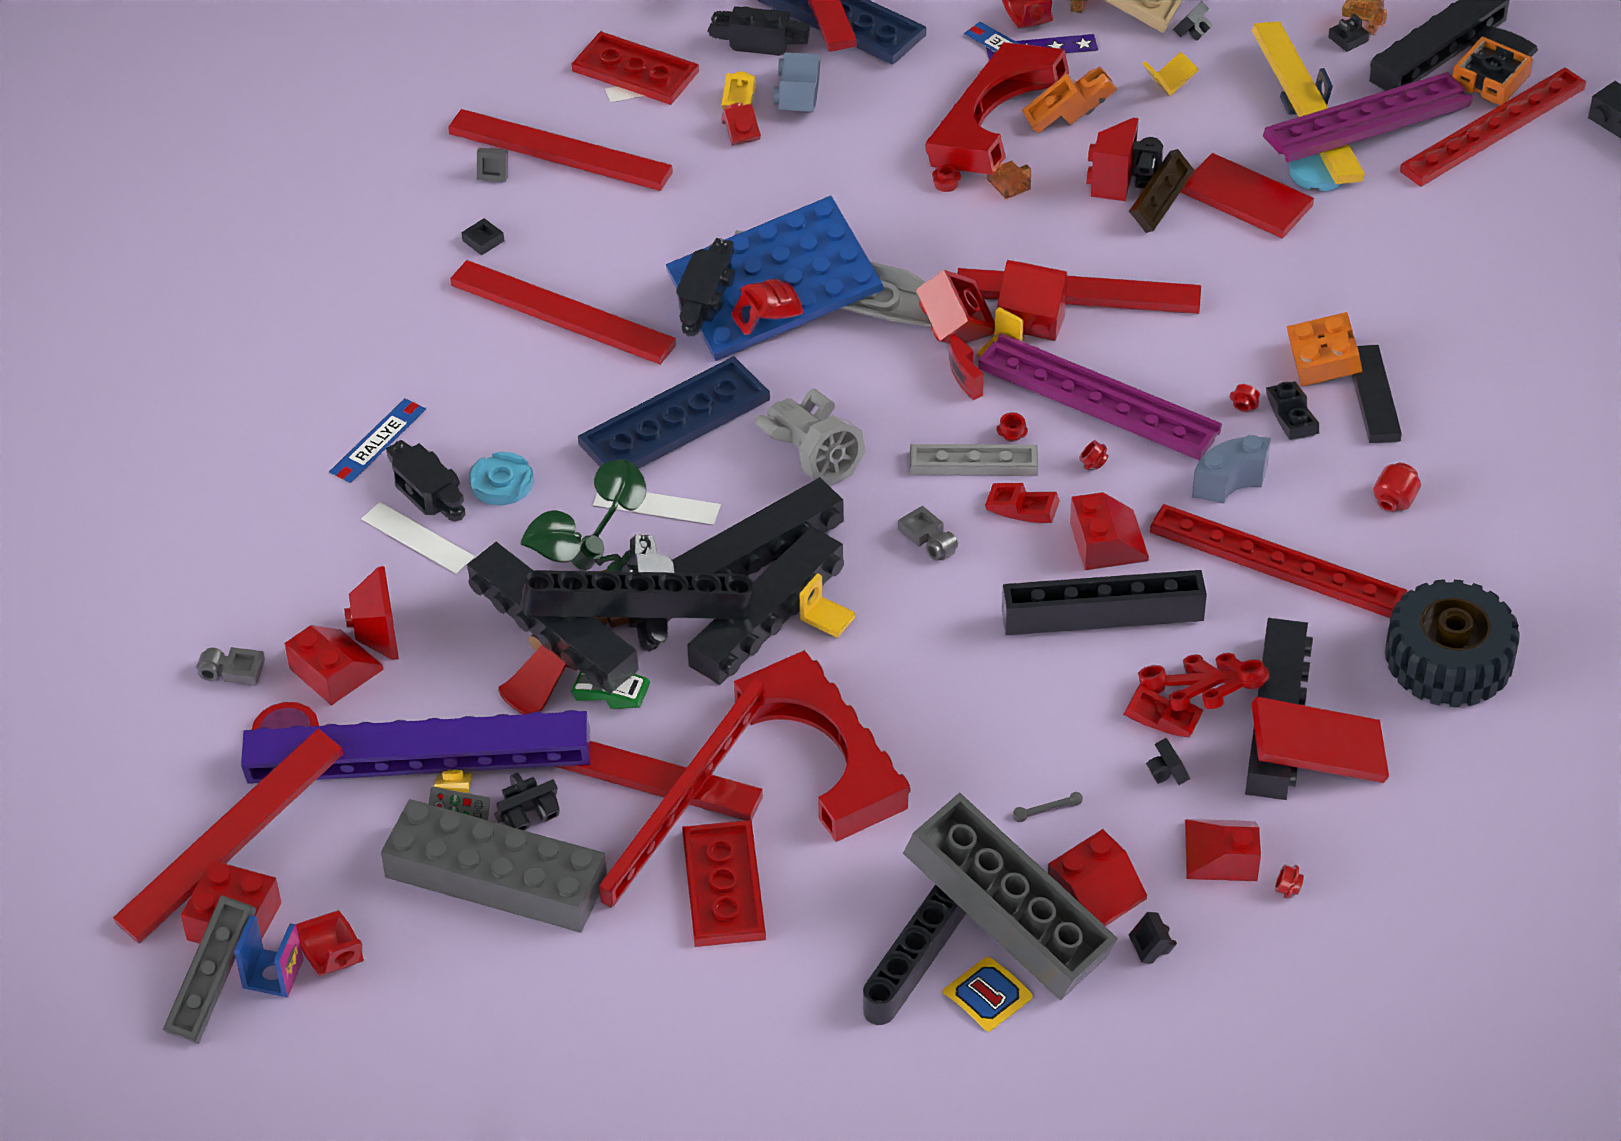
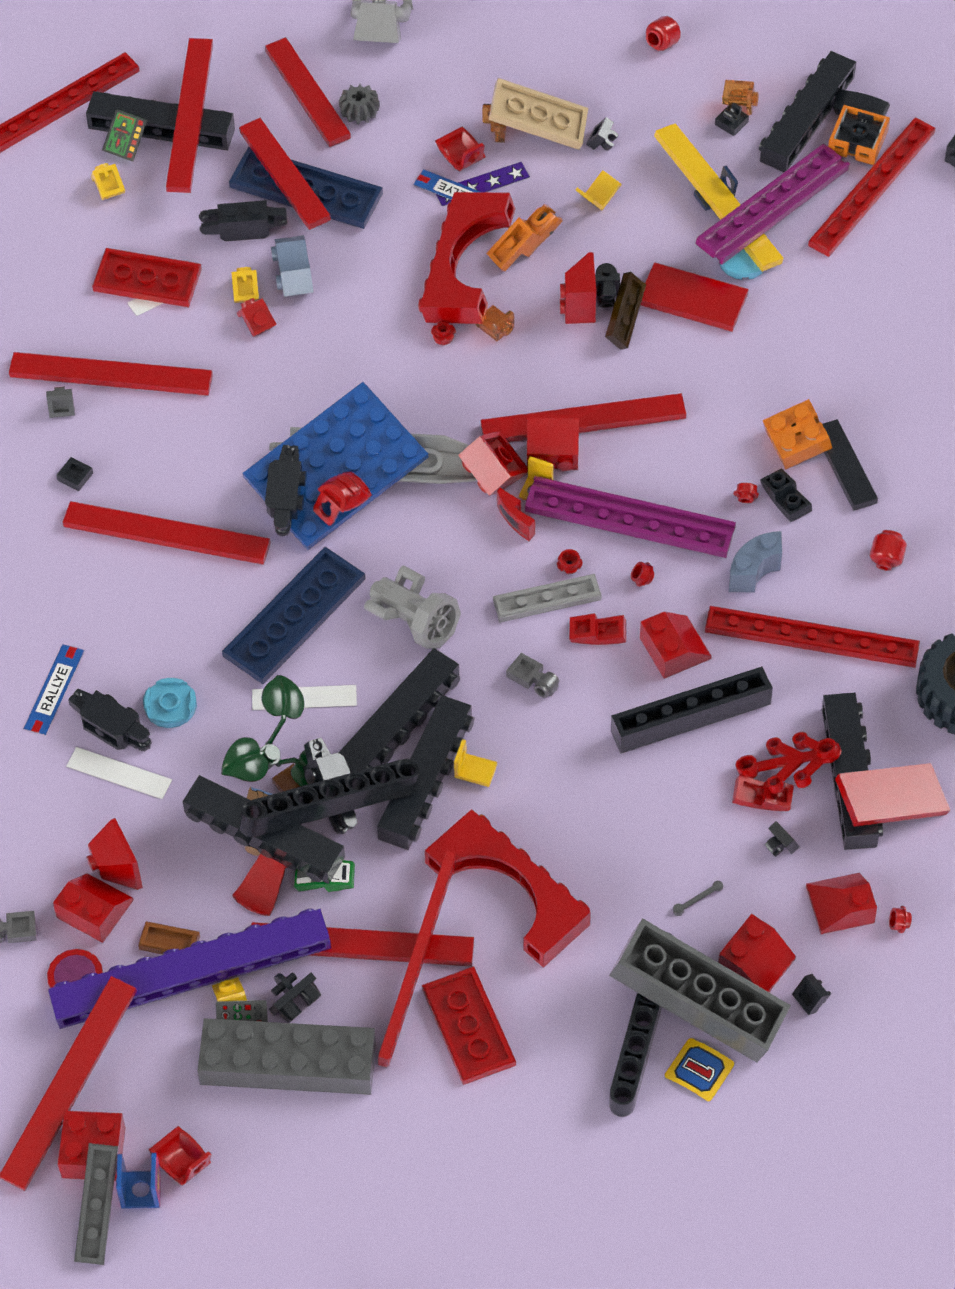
camera: 15 degrees left, 10 degrees up
(393, 707) = (160, 938): none -> dark orange tile

